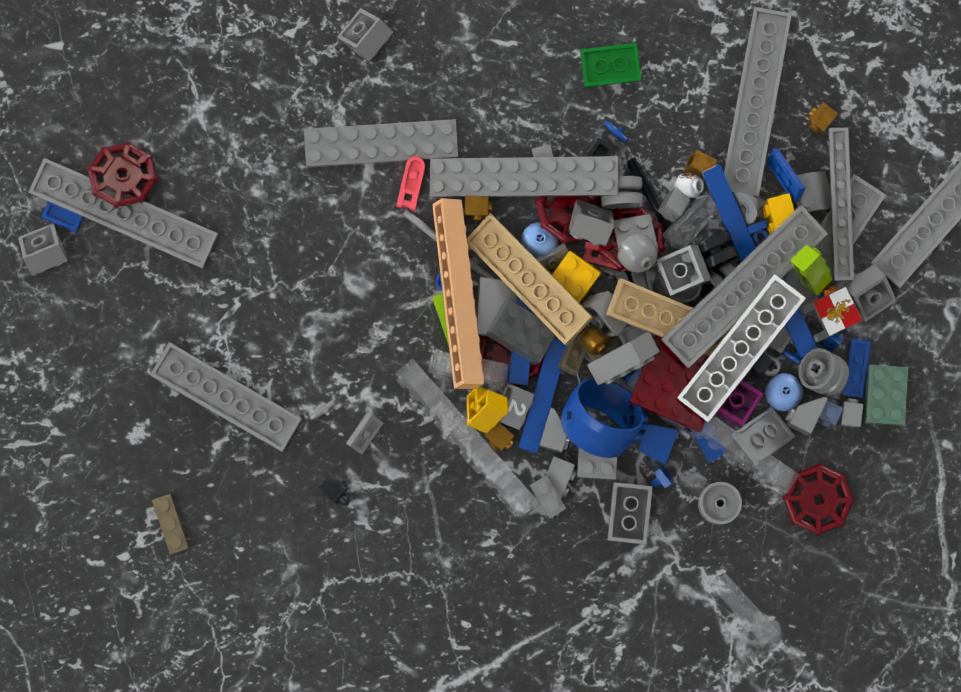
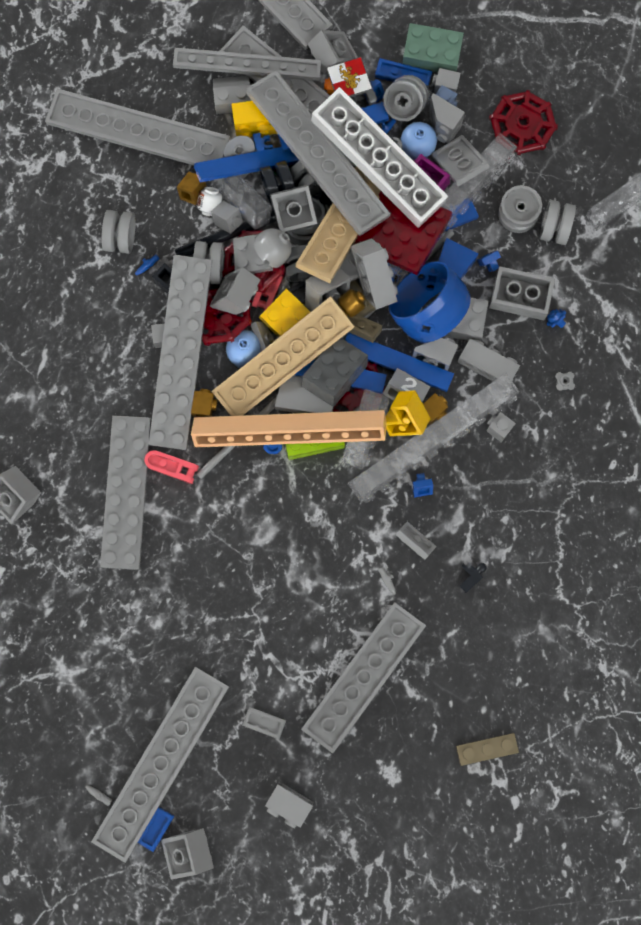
camera: 90 degrees left, 5 degrees down
(87, 159) = (99, 795): none -> light grey helmet
(95, 337) = (289, 805): none -> light grey brick
(122, 185) = (131, 762): dark red plate -> none
(172, 306) = (264, 723): none -> light grey plate
(419, 434) = (422, 486): none -> blue tile
(489, 505) = (500, 426): none -> light grey brick
(547, 497) = (499, 366): light grey plate -> none
(547, 562) = (560, 381): none -> light grey plate
(609, 552) = (556, 318): none -> blue plant
(610, 65) = (81, 262): green plate -> none
(643, 98) = (118, 231): none -> light grey wheel
(709, 541) = (561, 223): none -> light grey wheel
(785, 175) = (212, 108): blue tile -> none
(812, 269) = (307, 90): lime brick -> none
(821, 118) = (161, 74): pearl gold brick -> none

